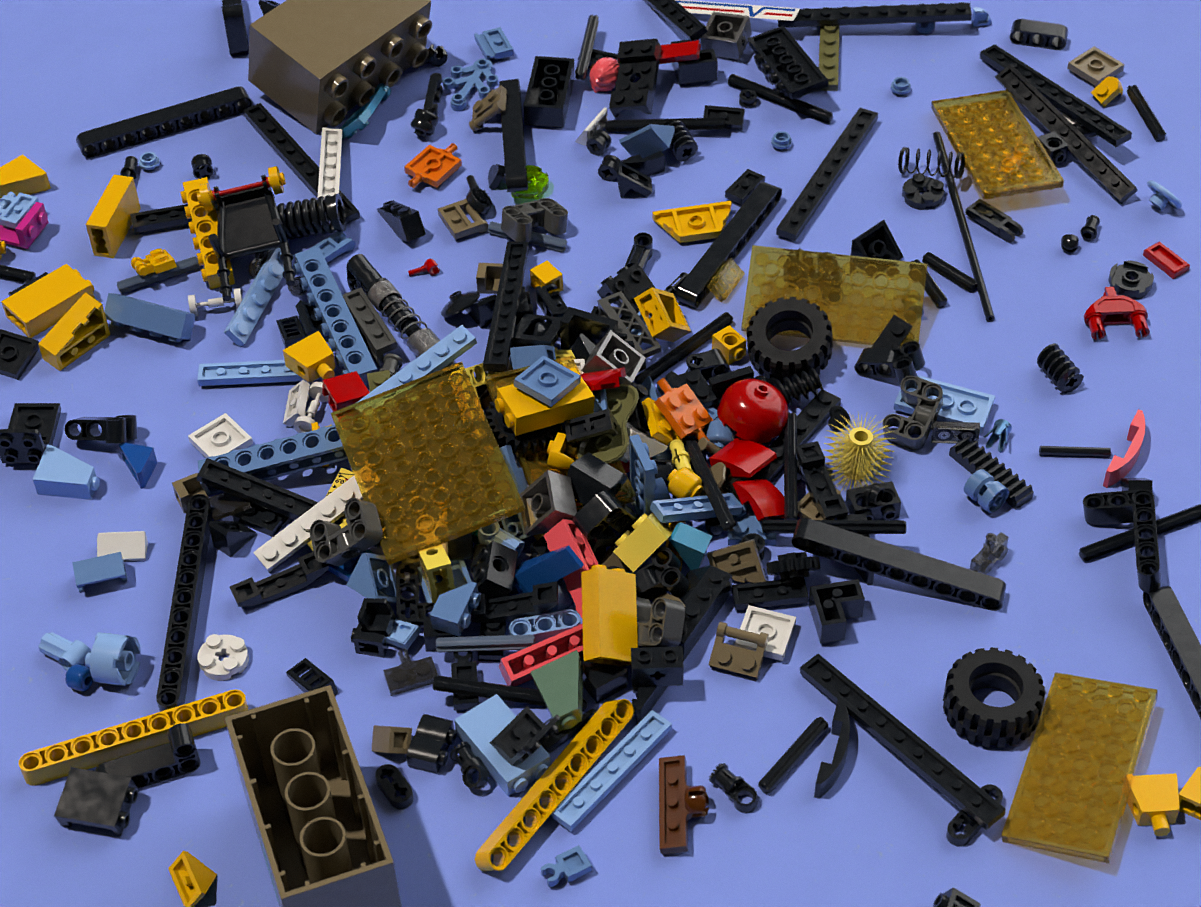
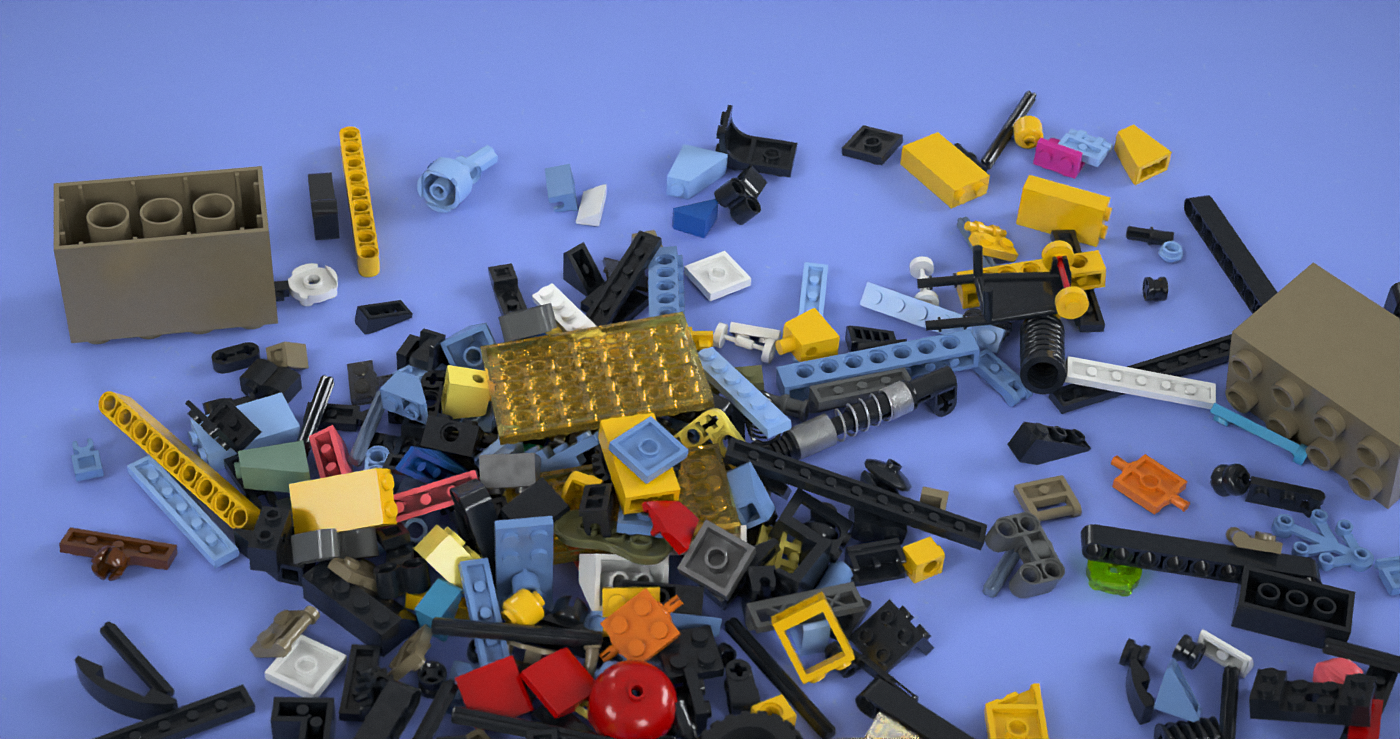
camera: 95 degrees right, 5 degrees down
(75, 333) = (887, 182): yellow wedge -> none
(96, 800) = (293, 170): black panel -> none
(149, 316) = (903, 232): medium blue brick -> none
(185, 604) = (493, 235): black beam -> none
(219, 645) = (446, 260): white plate -> none
(344, 390) = (743, 349): red plate -> none
(429, 265) = (962, 463): red hand -> none
(436, 57) = (1379, 511): black piece -> none
(477, 197) = (1078, 514): black piece -> none
(632, 179) = (1102, 668): black slope -> none
(641, 250) = (966, 660): black piece -> none
(679, 455) = (571, 620): light yellow pin -> none
(734, 787) = (115, 601): black connector -> none

